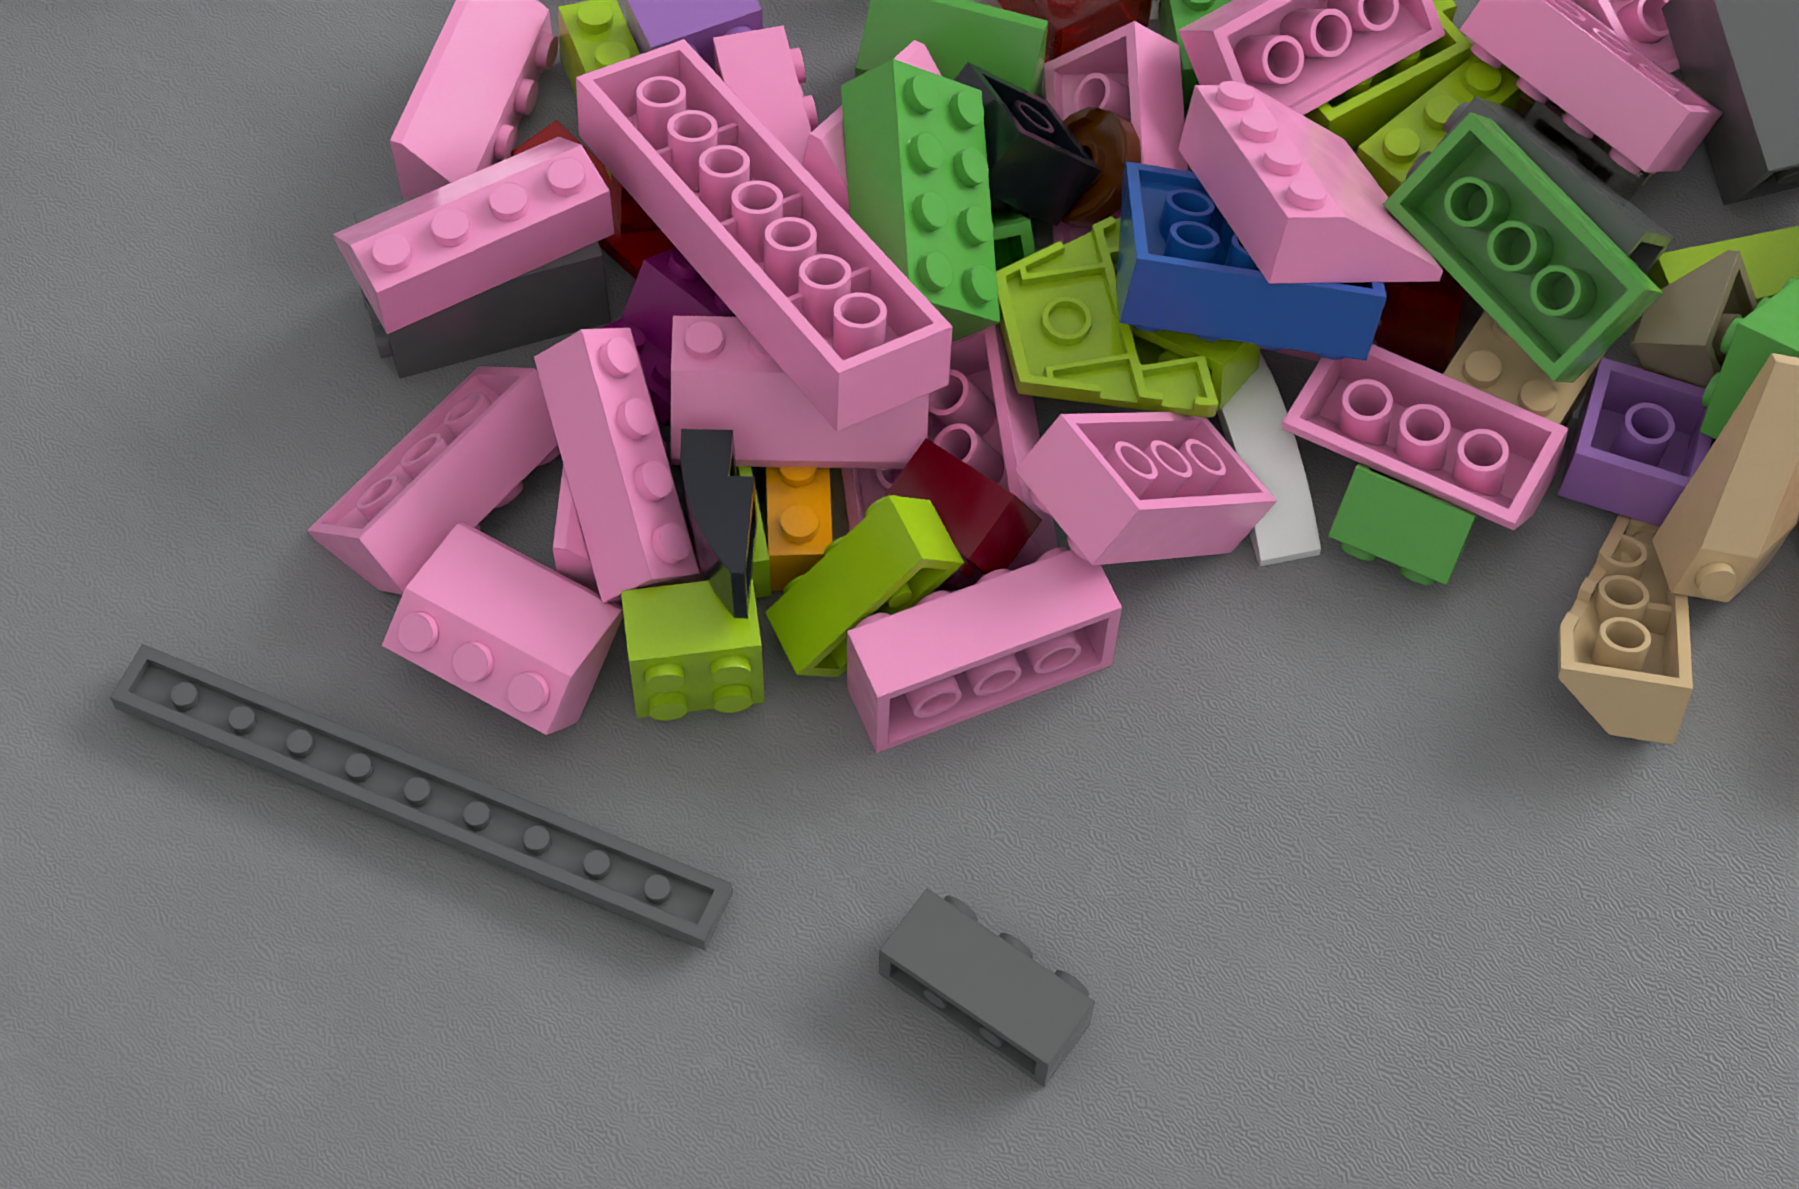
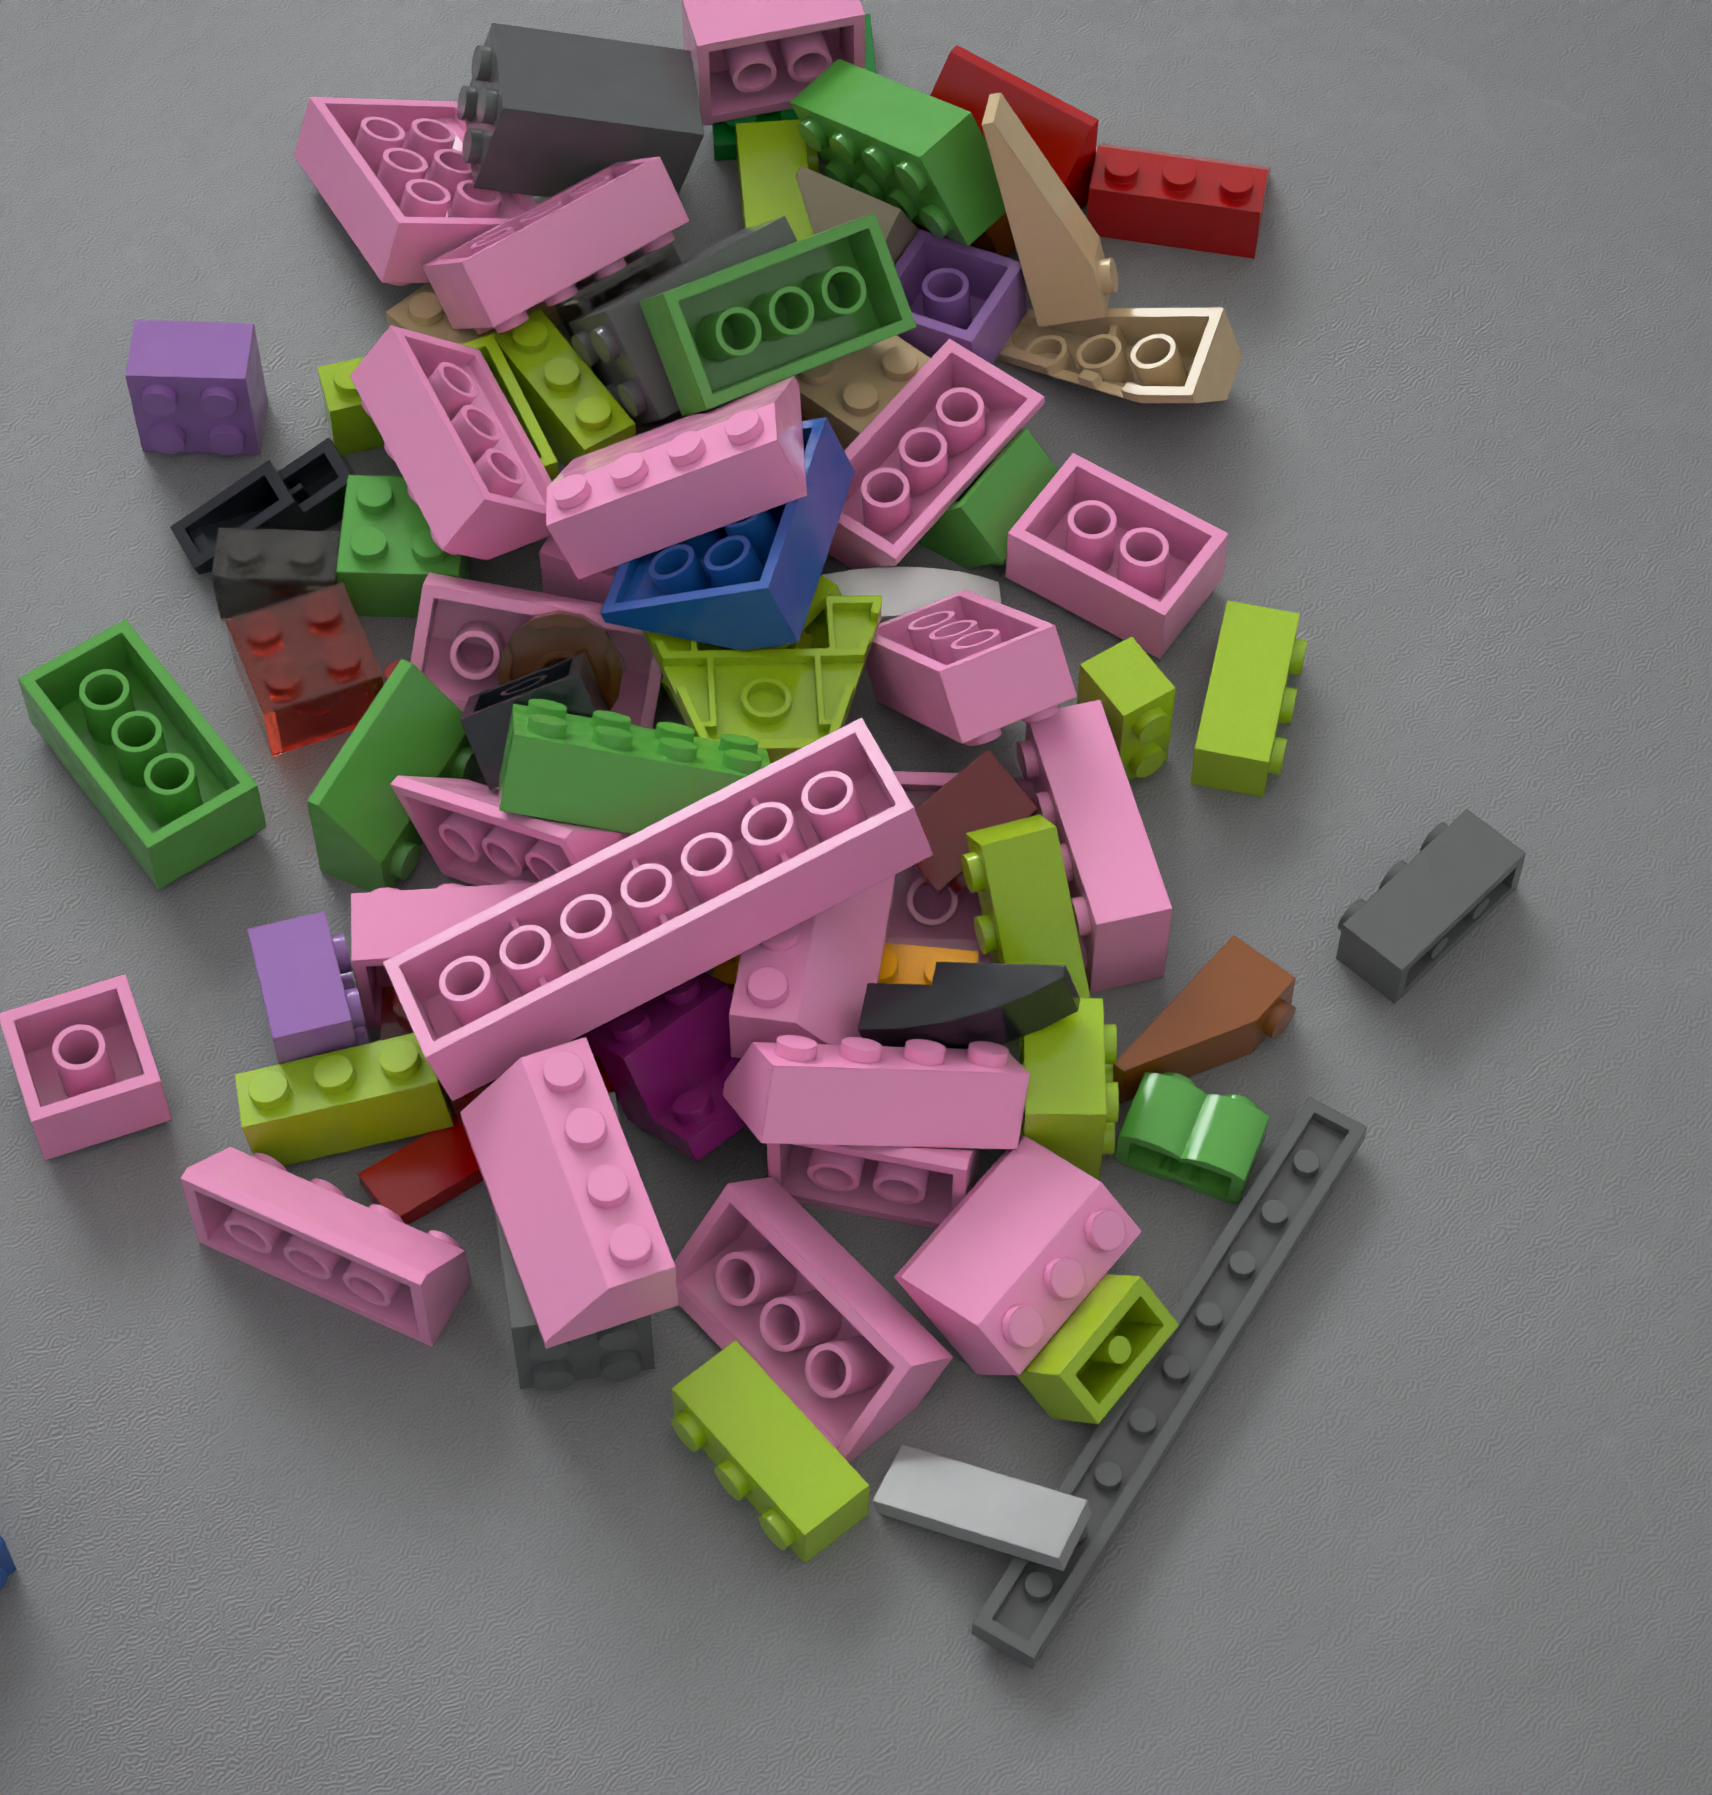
camera: 80 degrees left, 5 degrees down
(256, 639) = (982, 1507): none -> light grey tile
(303, 465) = (768, 1453): none -> lime brick
(419, 714) = (1099, 1350): none -> lime brick
(677, 782) = (1192, 1136): none -> bright green brick
(821, 794) = (1213, 1019): none -> dark orange slope
(1150, 659) = (1135, 702): none -> lime brick
(1214, 787) = (1248, 699): none -> lime brick
(1357, 638) = (1116, 555): none -> bright pink brick

